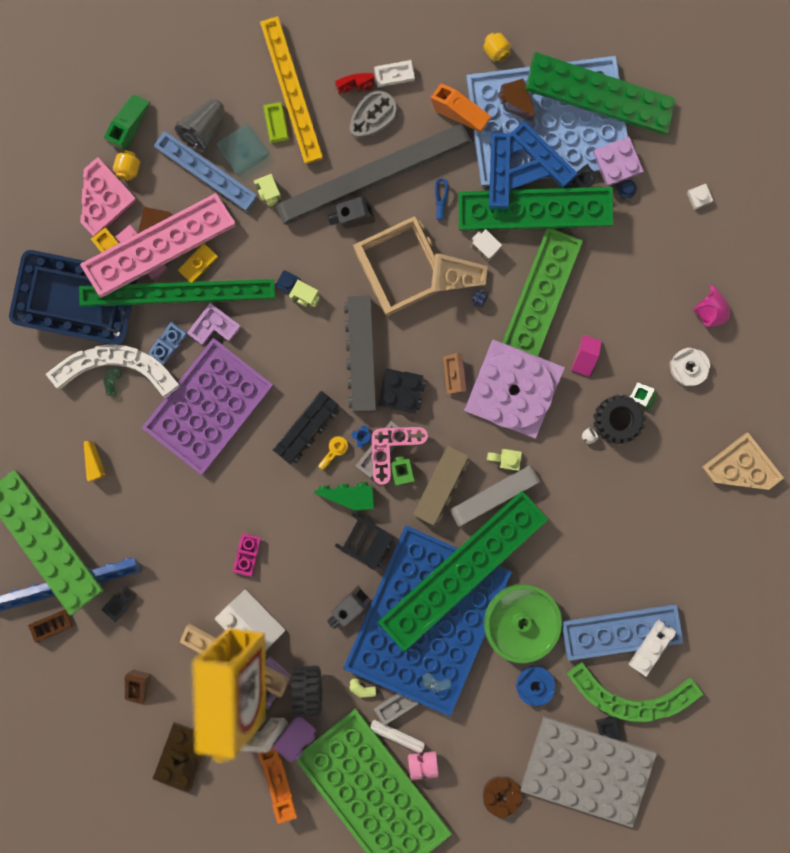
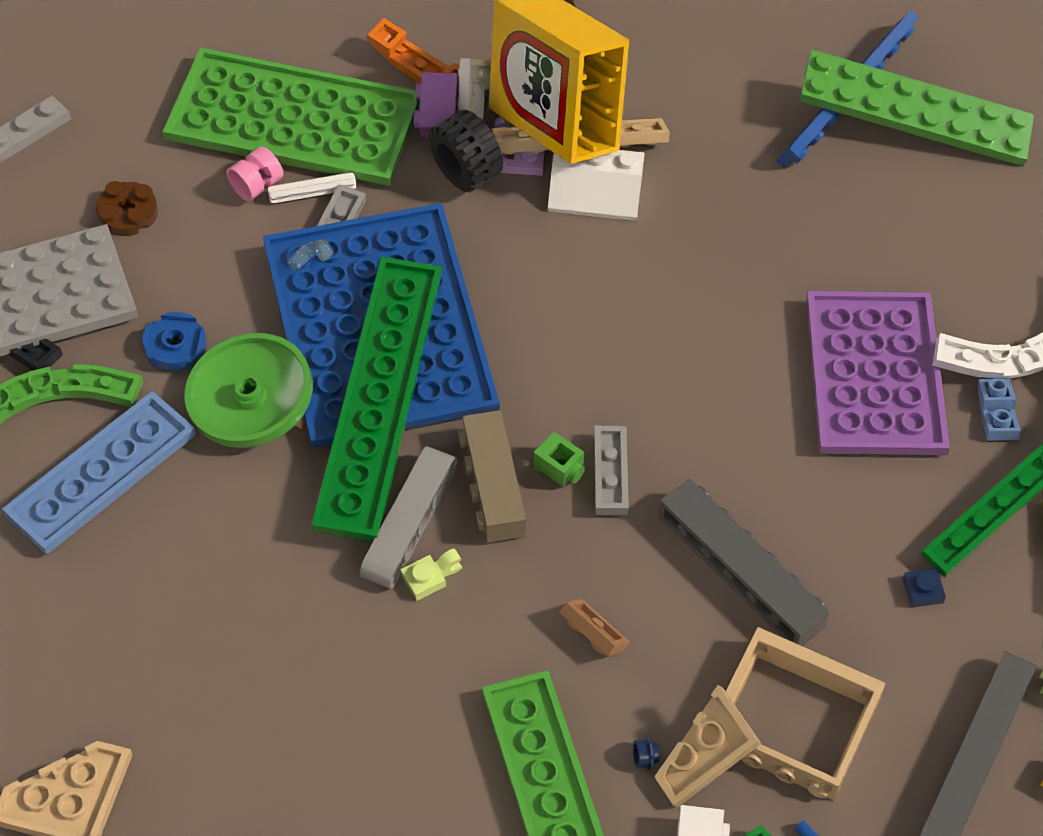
camera: 140 degrees right, 30 degrees down
(33, 627) = (829, 29): reddish brown slope -> none
(94, 466) = (948, 223): yellow slope -> none
(109, 379) = (1021, 319): clear green arm -> none
(117, 606) = (768, 108): black plate -> none
(136, 686) = (670, 53): reddish brown slope -> none
(213, 320) = (969, 471): lavender plate -> none
(247, 555) = (667, 251): dark pink slope -> none
(304, 294) = (887, 584): yellowish green brick -> none
(306, 427) = (730, 429): black brick -> none
(337, 446) = (669, 437): yellow plate -> none
(352, 497) = (599, 388): green slope -> none
(352, 604) = (490, 258): black torso -> none
(357, 435) = (648, 463): blue plate -> none
(359, 213) = (932, 721): black torso -> none
(360, 691) = (397, 203): yellowish green arm -> none
(380, 543) = (512, 358): black plate -> none
(385, 446) = (608, 474): bright pink beam -> none
(401, 391) = (646, 559): black plate -> none
(508, 367) = (484, 689): lavender piece -> none
(586, 356) = (425, 791): dark pink slope -> none
(591, 435) = (325, 683): white hinge -> none
(634, 414) = (303, 700): black tyre -> none
(644, 395) = (292, 794): slope -> none
(651, 648) = (44, 470): white plate -> none

